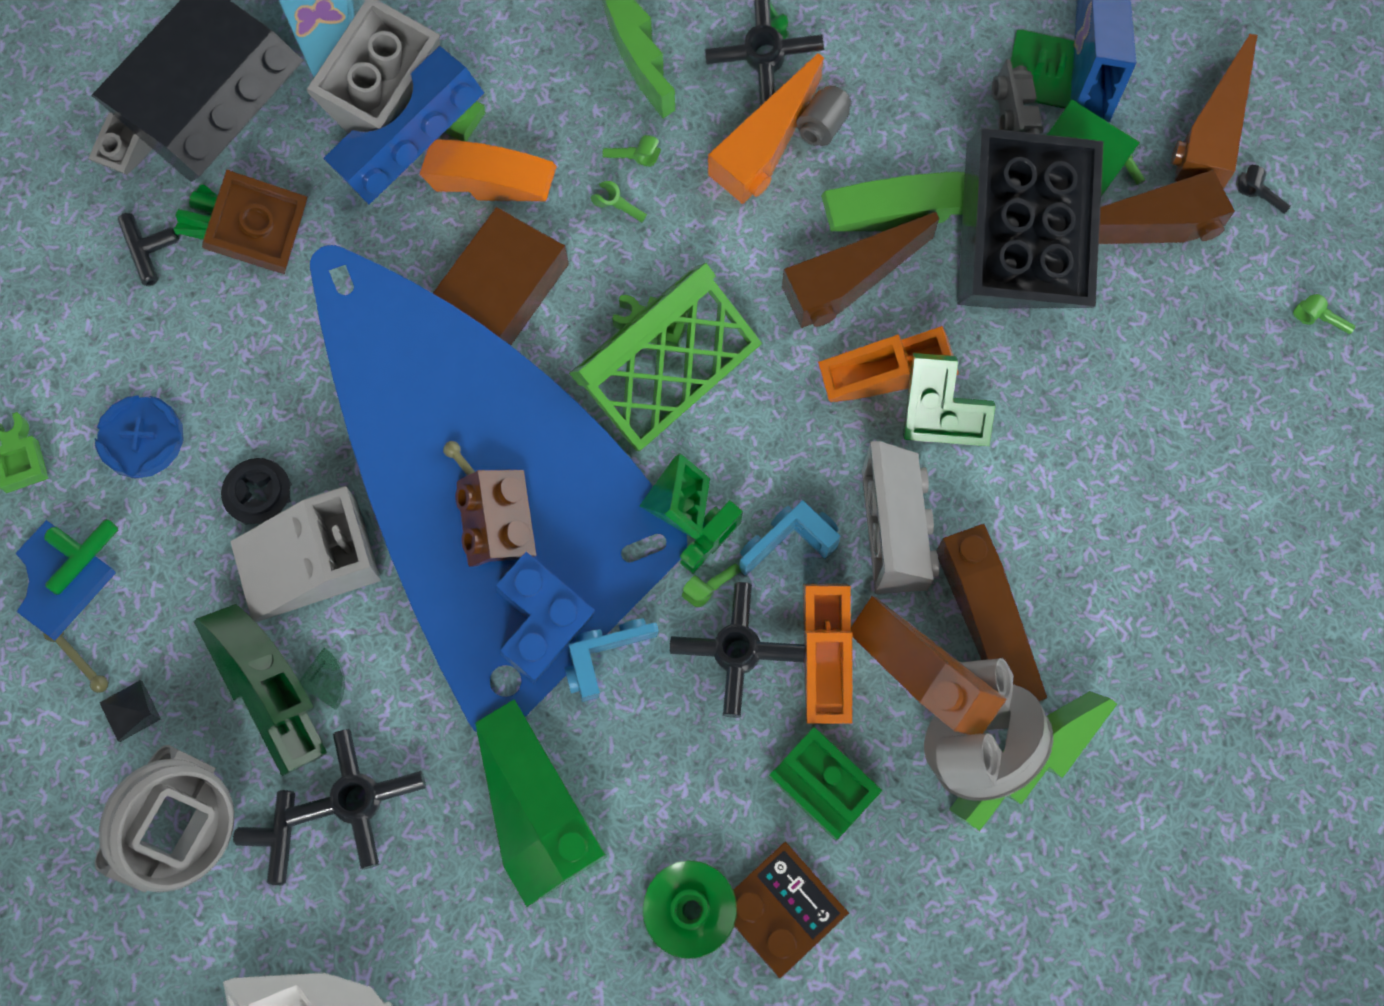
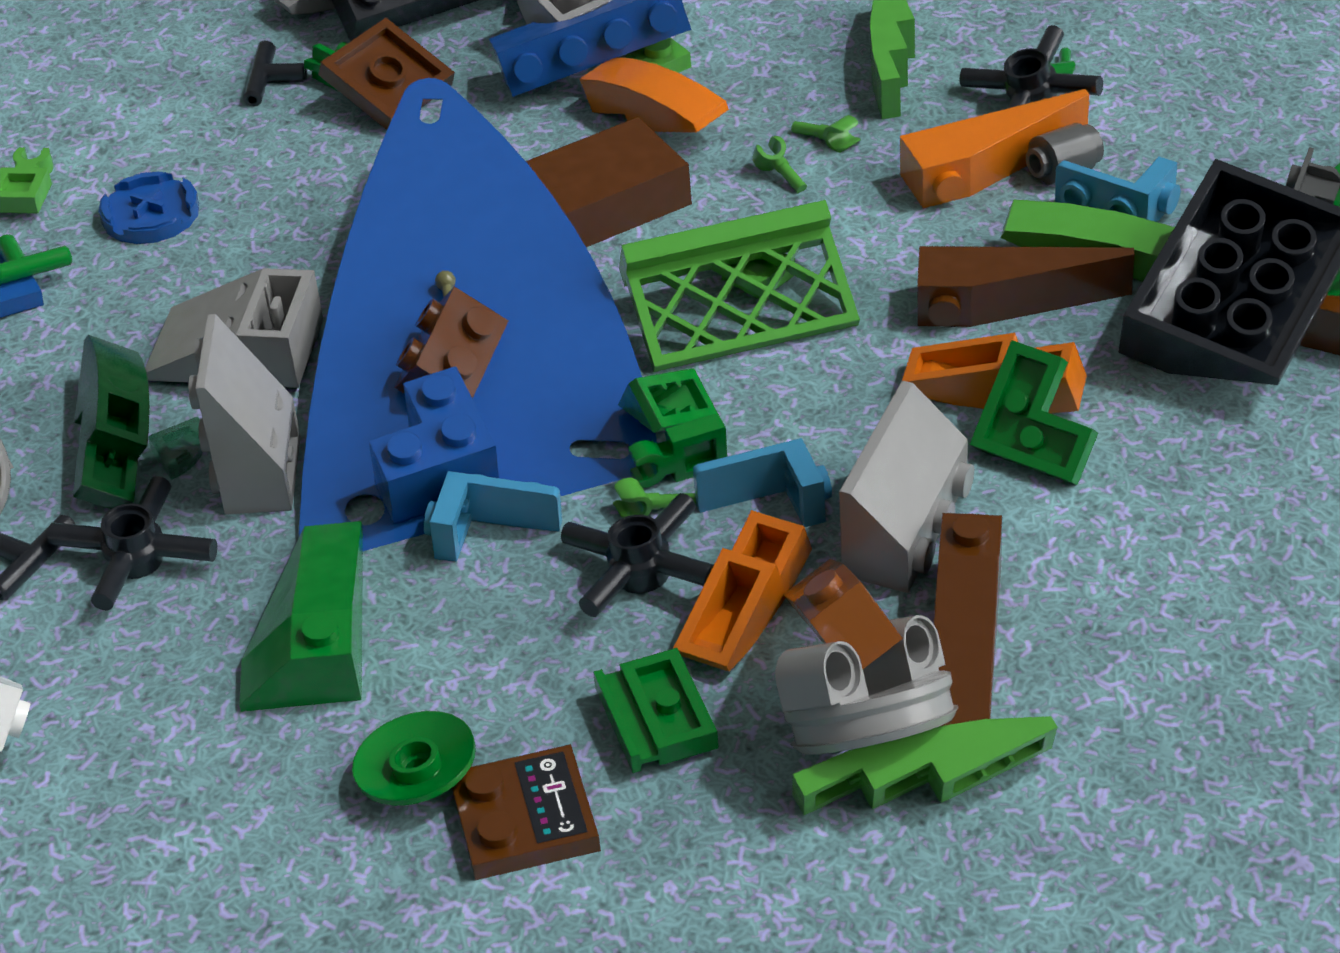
camera: 30 degrees right, 30 degrees down
(259, 472) = (211, 270): black gear -> none
(388, 665) = (244, 424): none -> light grey slope
(885, 155) = (1147, 198): none -> dark azure bracket

